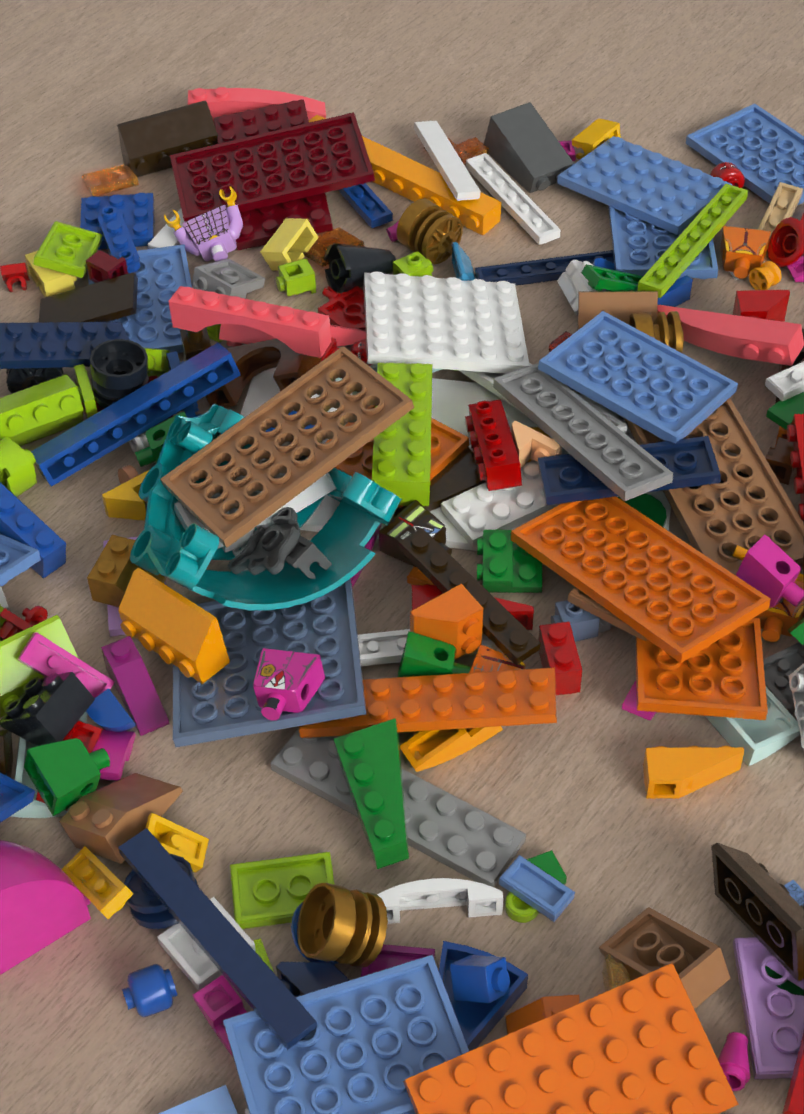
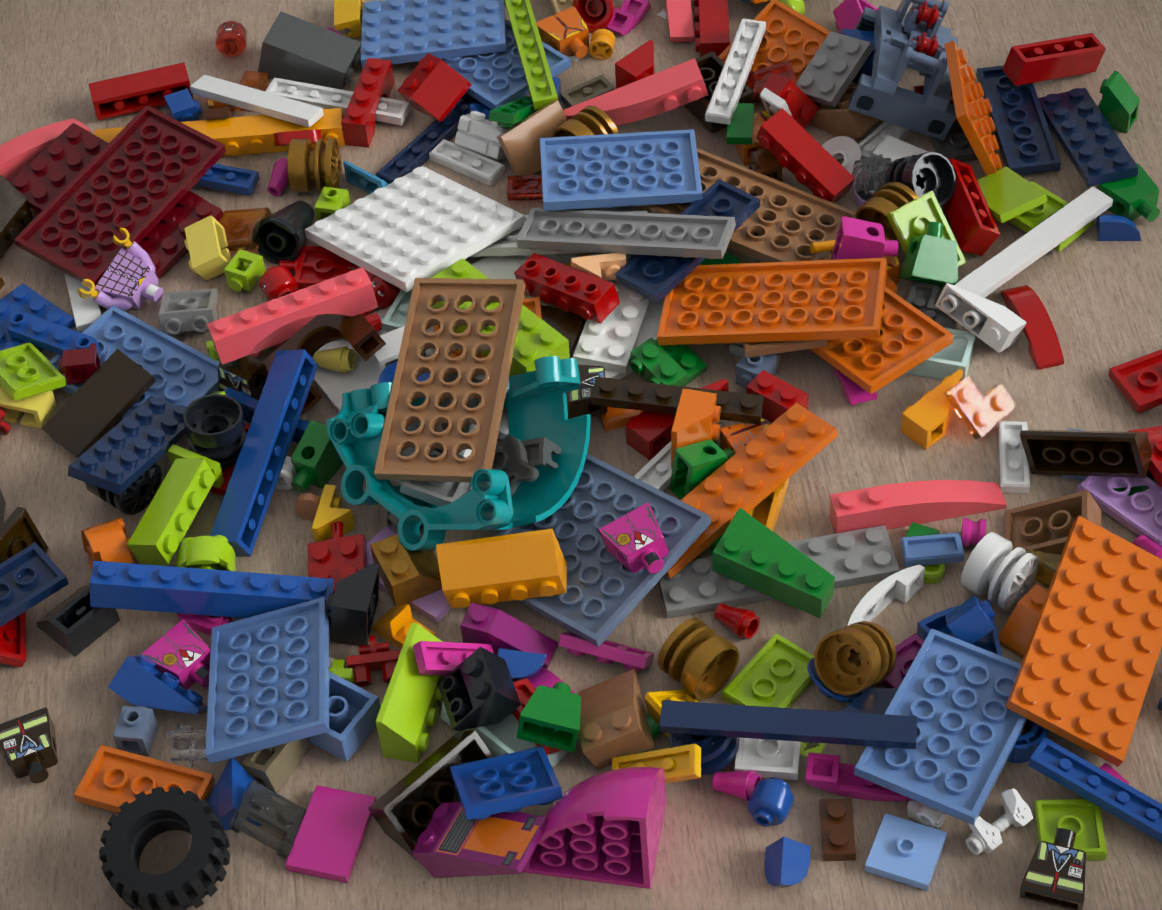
camera: 40 degrees left, 0 degrees up
(56, 574) = (354, 606): none -> black slope
(79, 623) = (395, 625): none -> light orange slope
(89, 535) = (337, 556): none -> red plate
(101, 1056) = (786, 862): none -> blue brick
(148, 949) = (736, 783): none -> dark pink cone
(177, 1063) = (837, 829): none -> reddish brown plate
(191, 762) = (608, 651): none -> dark pink plate
(233, 820) = (698, 658): none -> pearl gold wheel
(266, 379) = (336, 359): none -> light yellow cone
(307, 299) = (277, 282): none -> red head
(313, 817) = (740, 621): none -> red cone
(382, 107) = (136, 90): none -> red brick
(397, 136) = (182, 107): none -> blue brick
(413, 153) = (219, 112): none -> reddish brown tile
(444, 203) = (284, 138): none -> red beam
(488, 105) = (231, 38): none -> clear red head
(507, 219) = (360, 116): none -> red arch
(554, 303) = (467, 162): none -> white tile
(562, 955) = (999, 571): none -> white wheel
(572, 836) = (910, 502): none -> coral slope
(584, 227) = (434, 87): none -> red slope
(591, 903) = (972, 531): none -> dark pink wheel
(697, 877) = (1012, 458): none -> white tile
(708, 303) = (586, 91): none -> dark tan plate
(721, 801) = (978, 411): none -> clear orange plate

